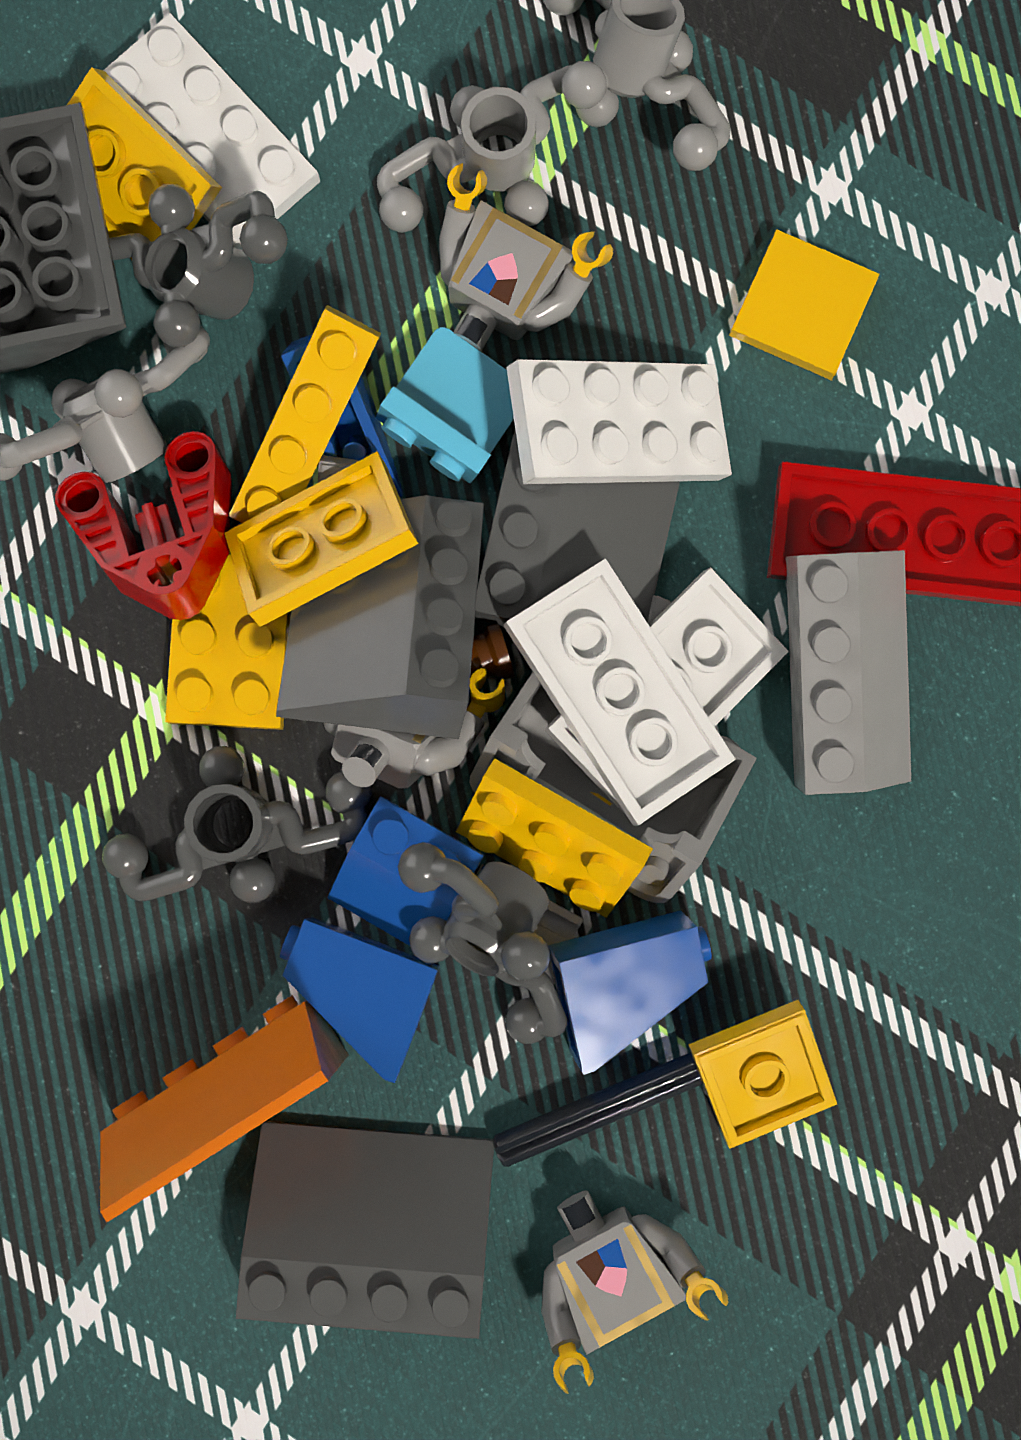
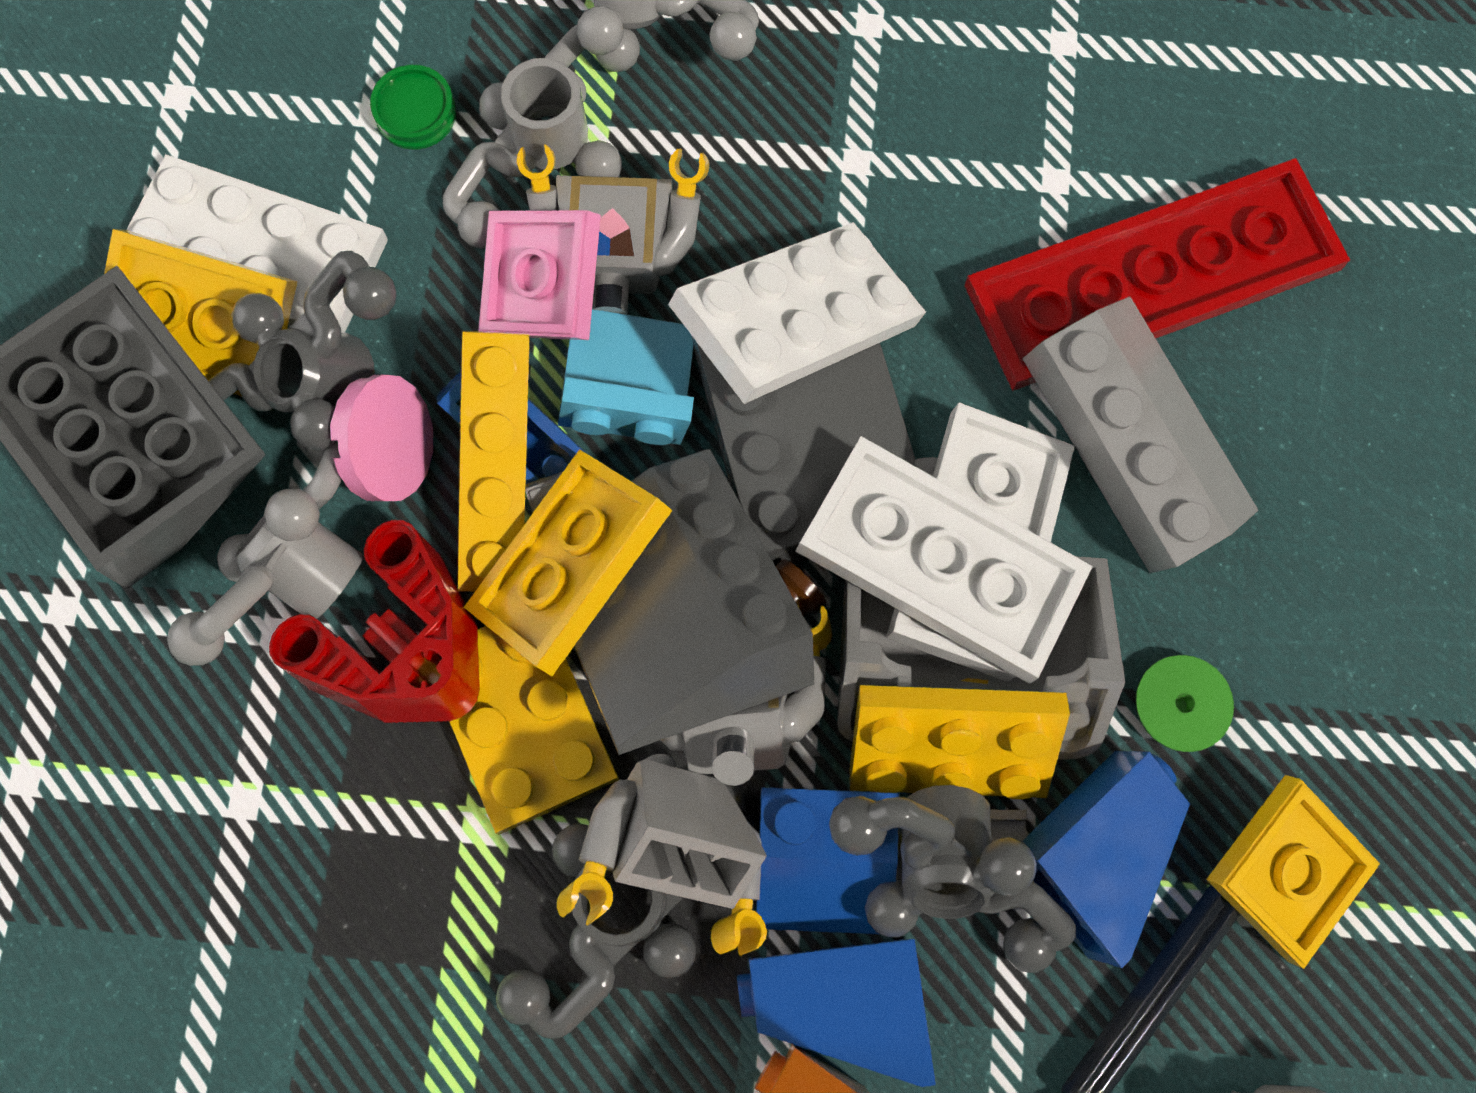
camera: 30 degrees left, 10 degrees down
(227, 359) = (382, 438): none -> bright pink tile
(291, 801) = (677, 838): none -> light grey torso
(398, 70) = (413, 107): none -> green piece
(423, 281) = (540, 273): none -> bright pink tile
(757, 902) = (1184, 703): none -> bright green piece
(804, 304) = (905, 133): yellow tile -> none

